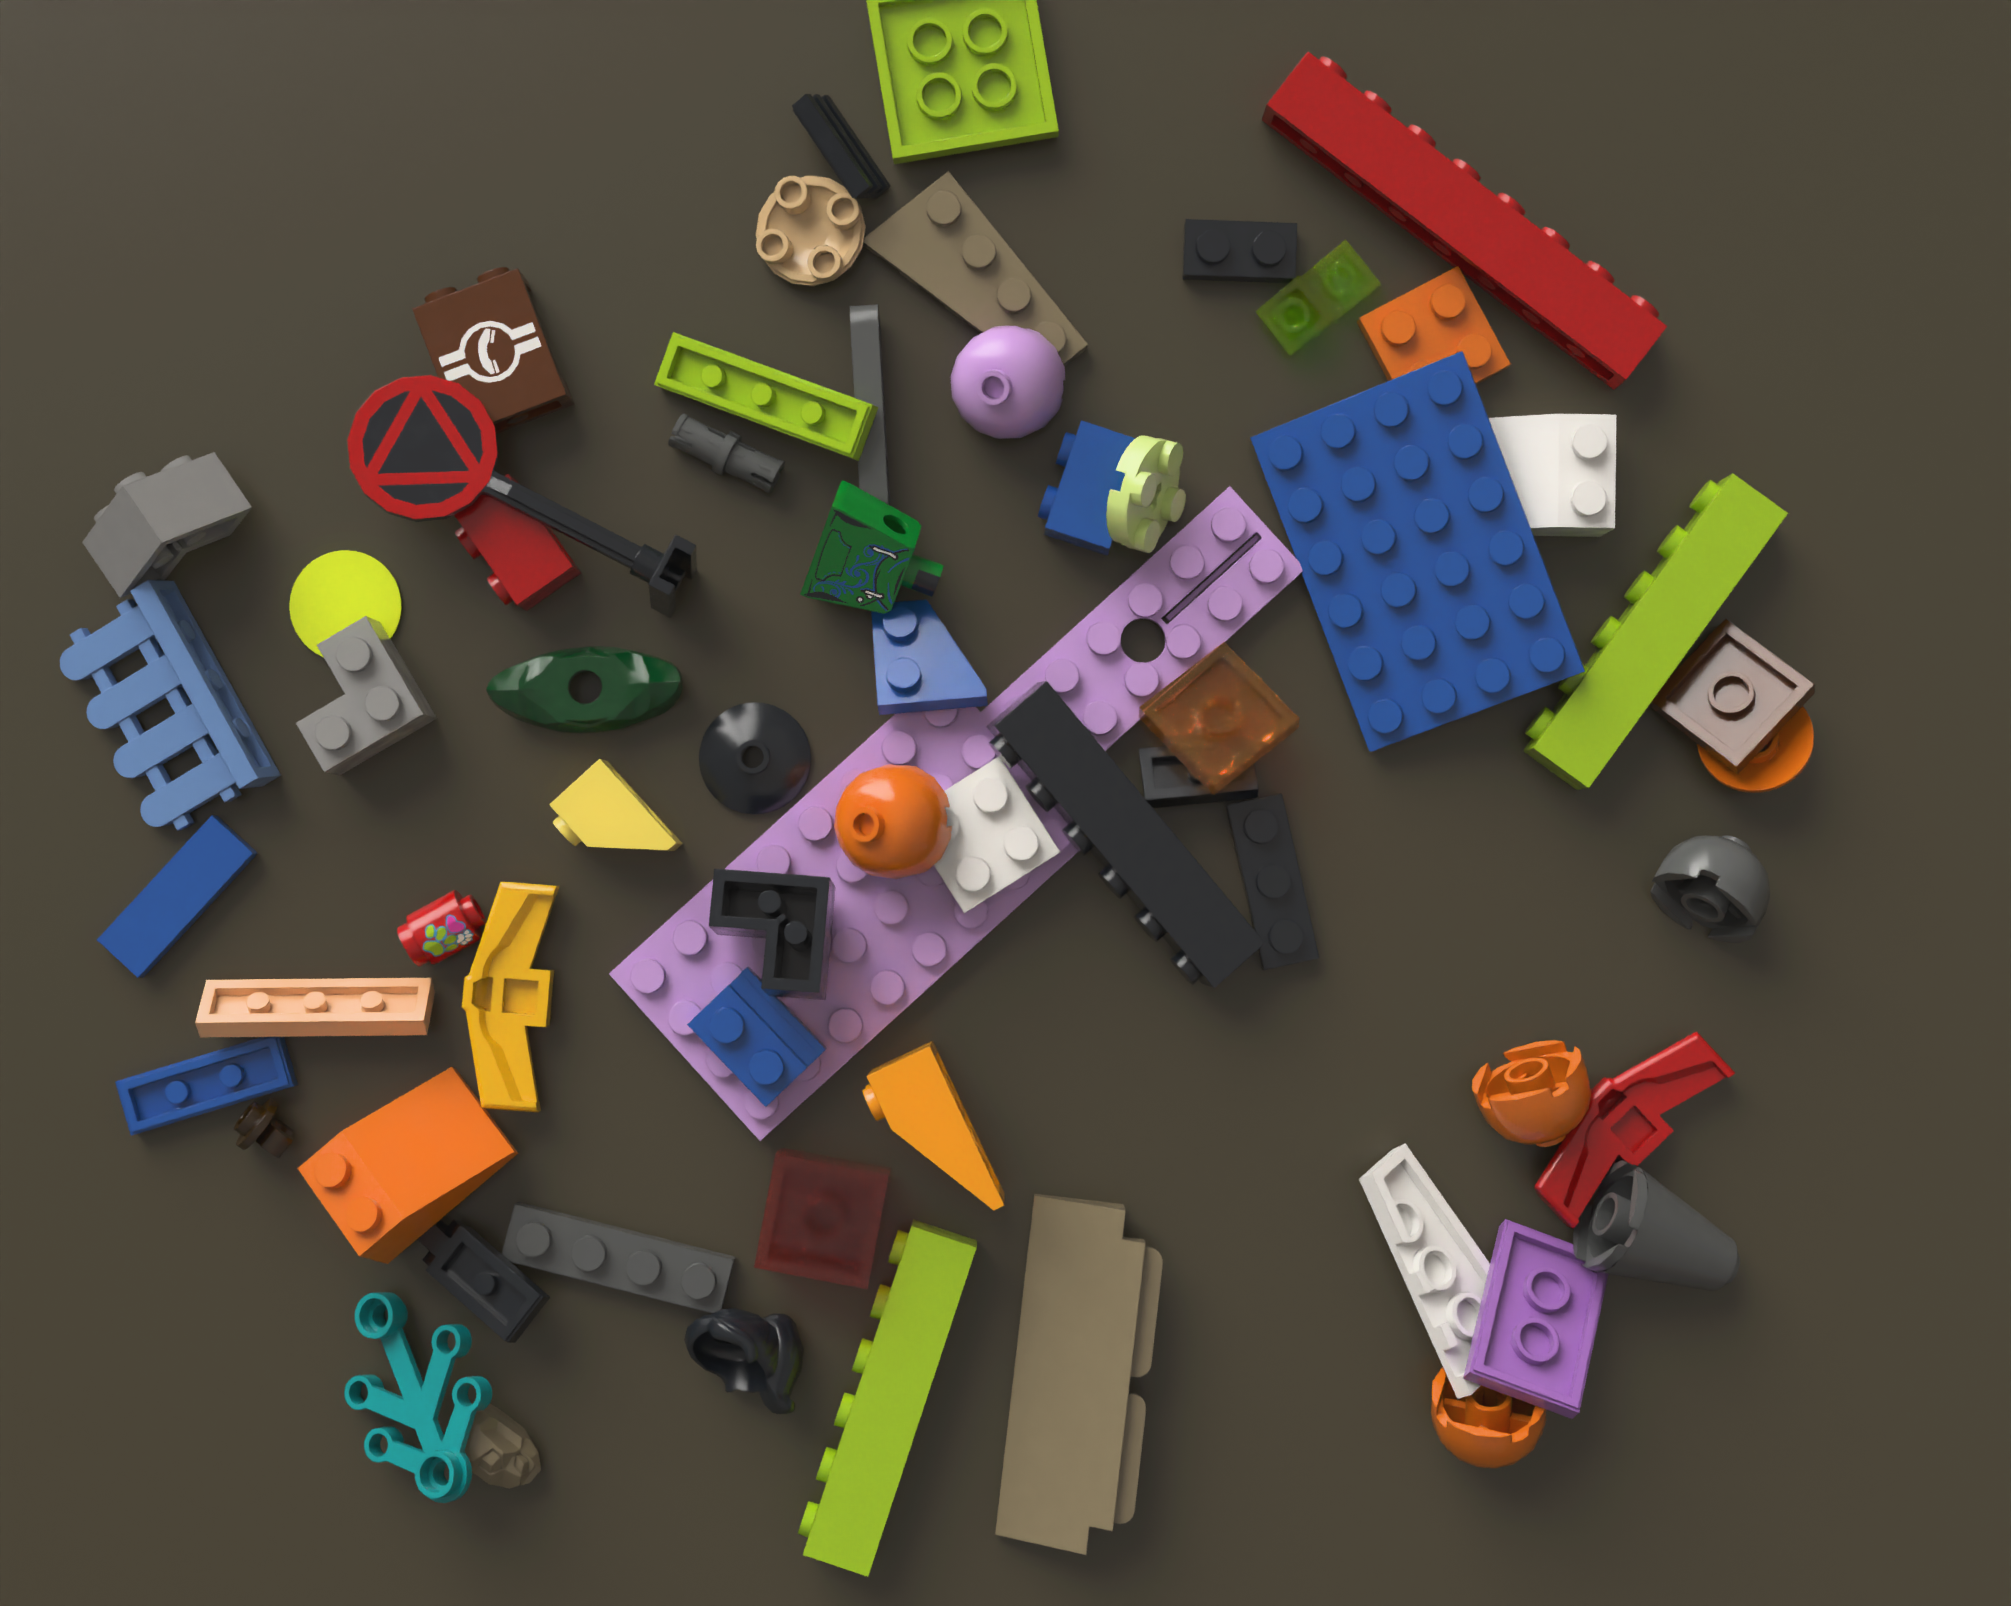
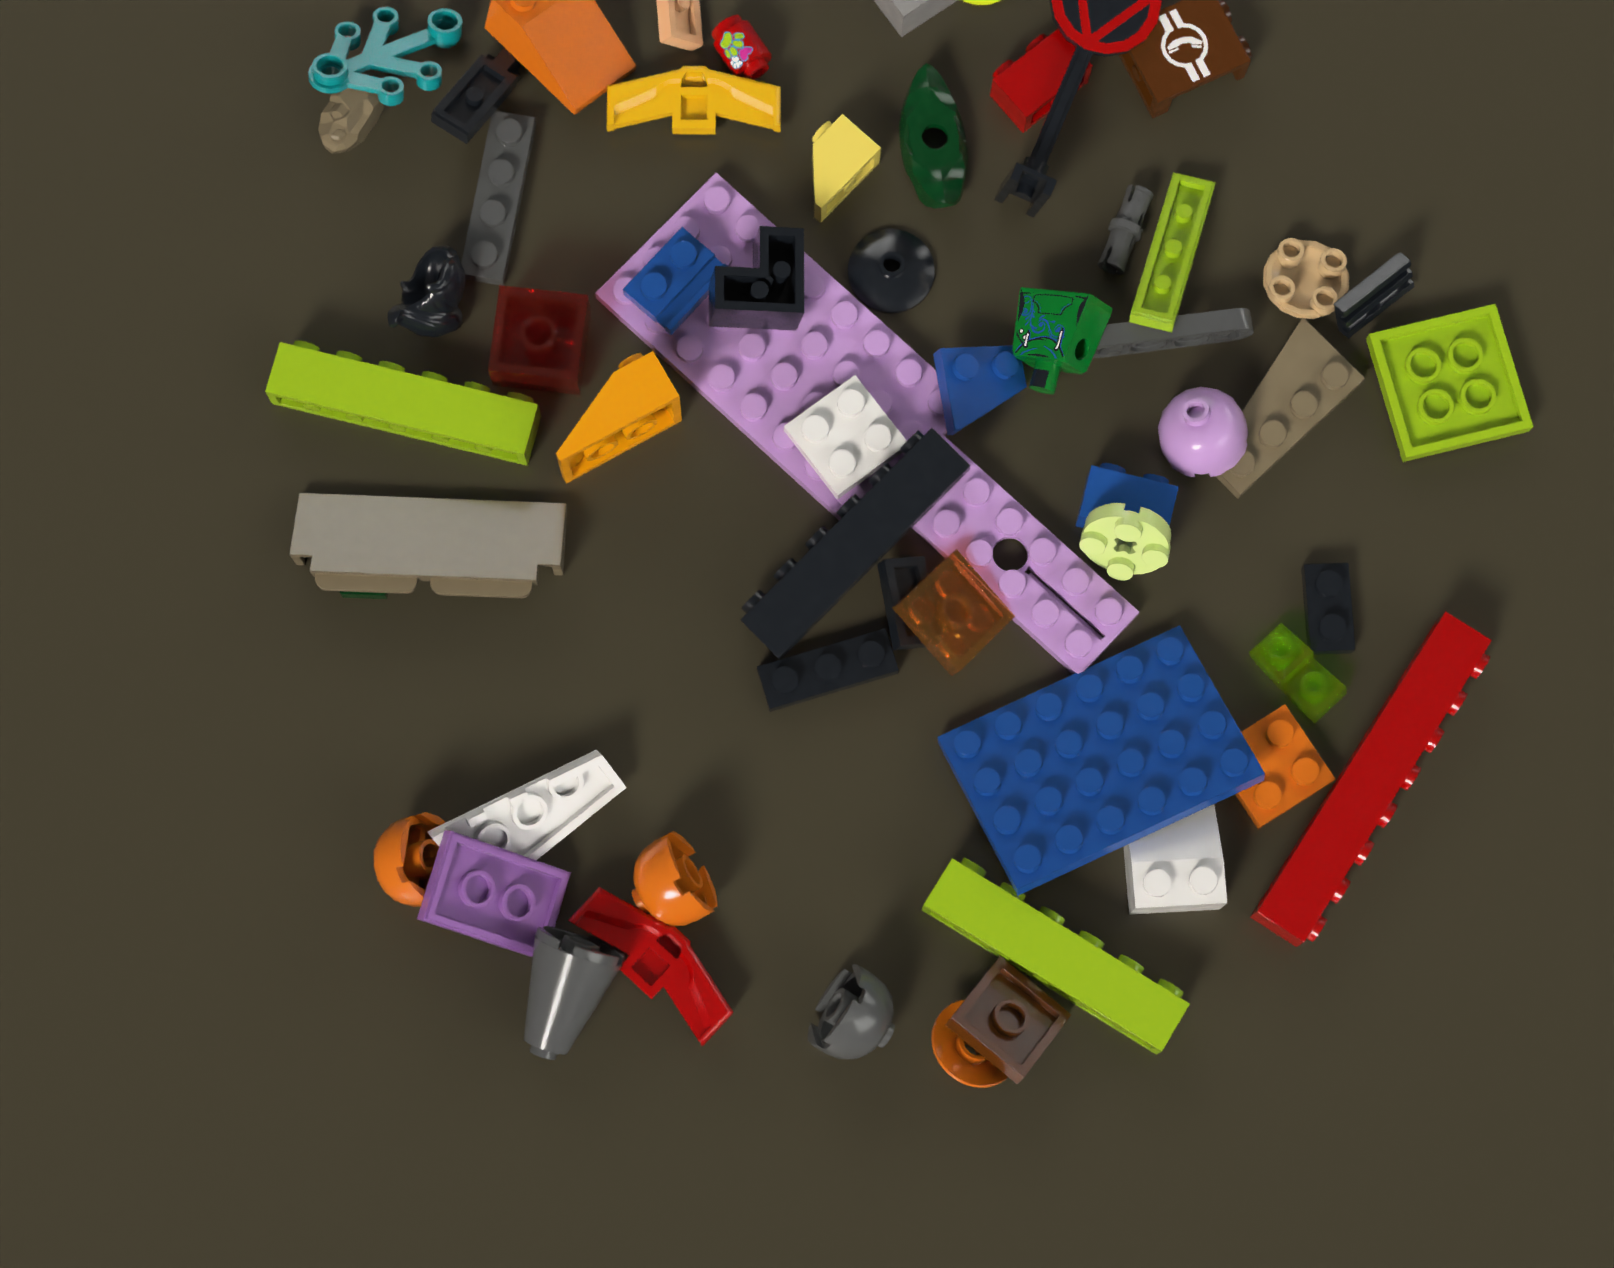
camera: 80 degrees right, 10 degrees down
(893, 821) = (850, 362): orange cylinder -> none

